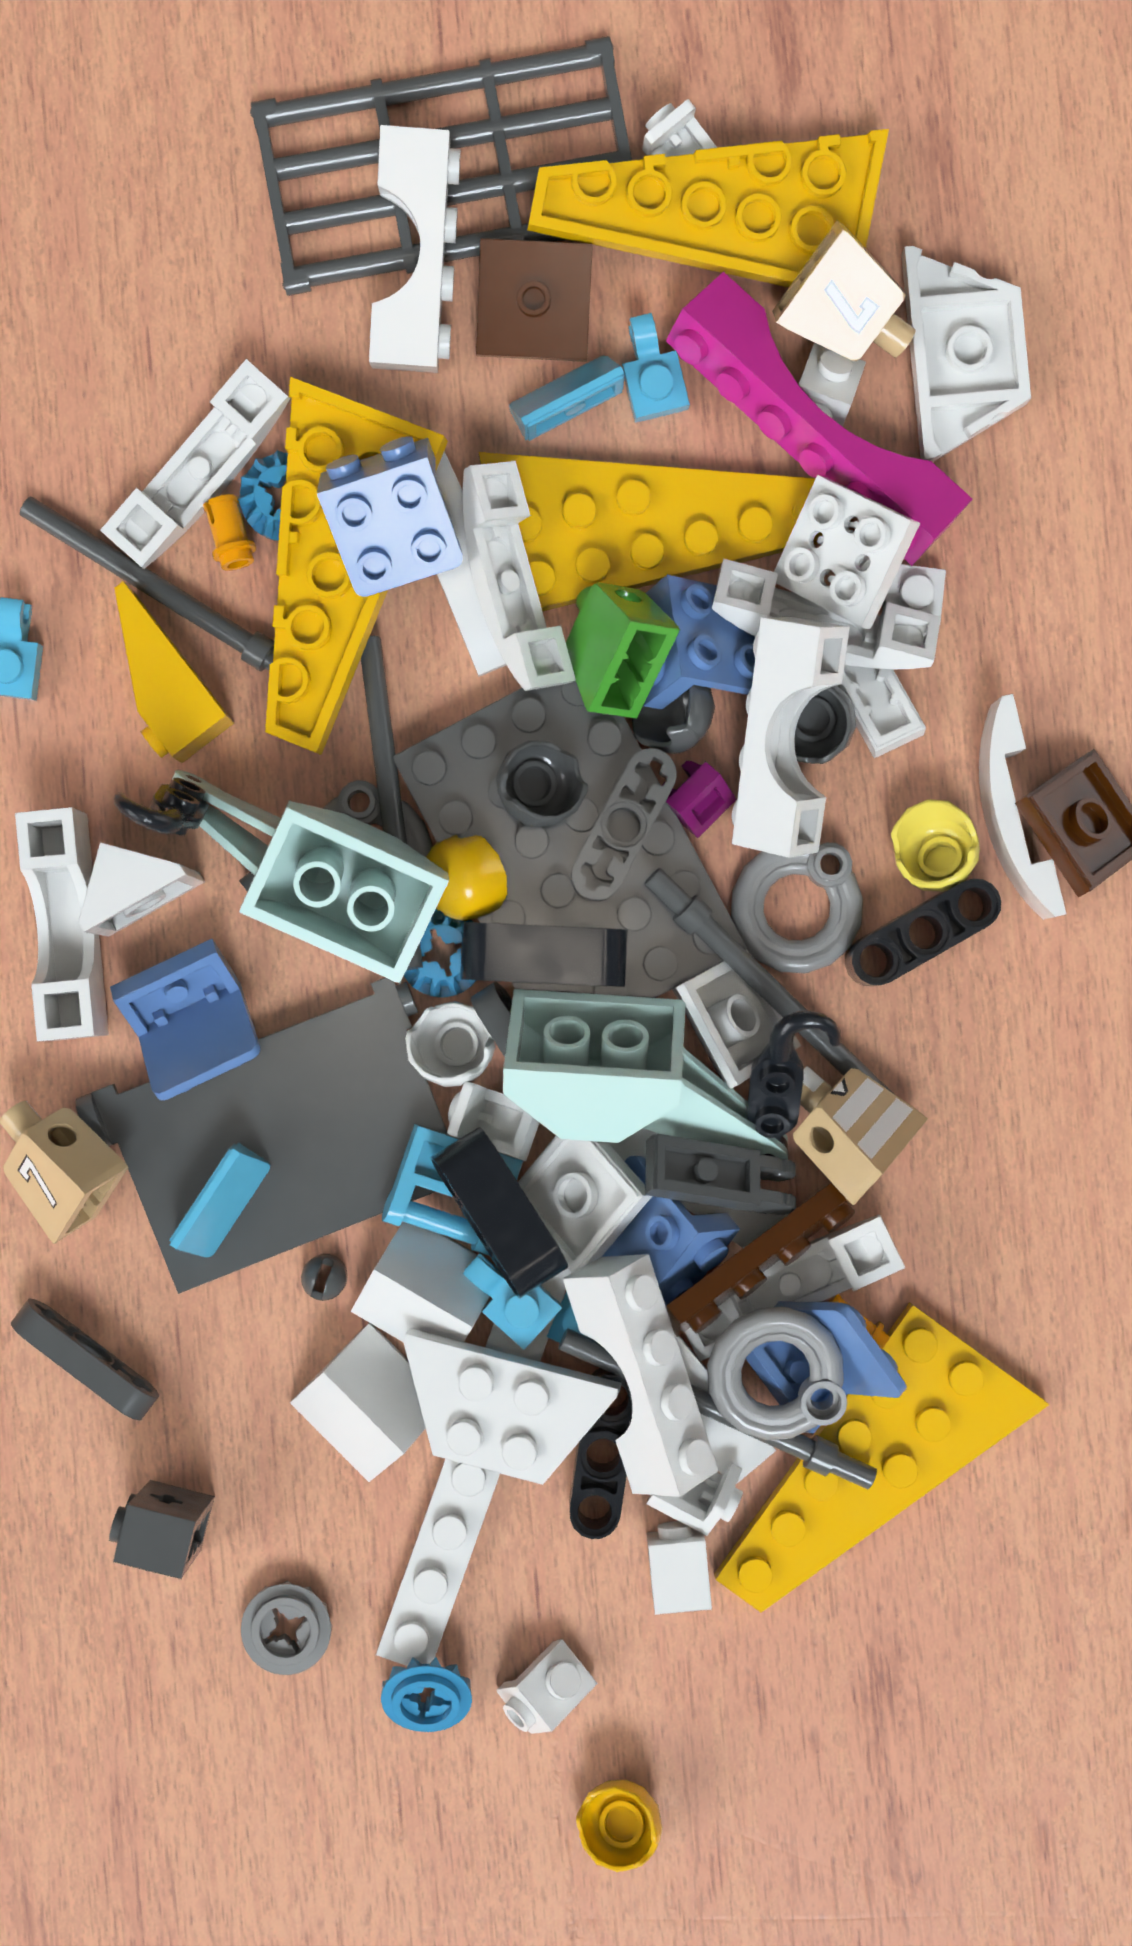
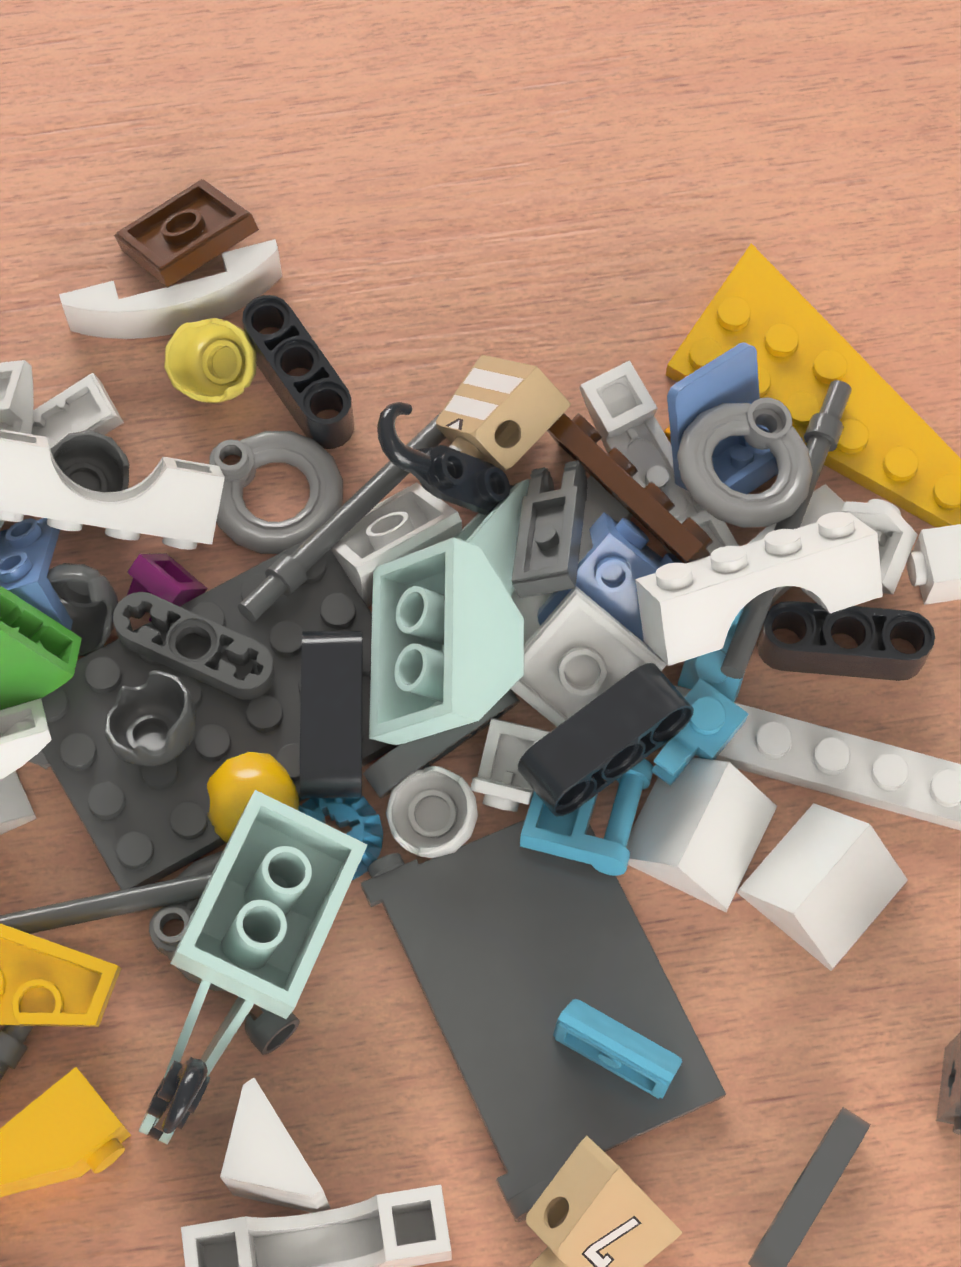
camera: 95 degrees left, 20 degrees down
(188, 1019) = (421, 1091): medium blue bracket -> none
(335, 1282) = (691, 950): dark grey hinge -> none
(501, 1406) = (810, 729): white wing -> none

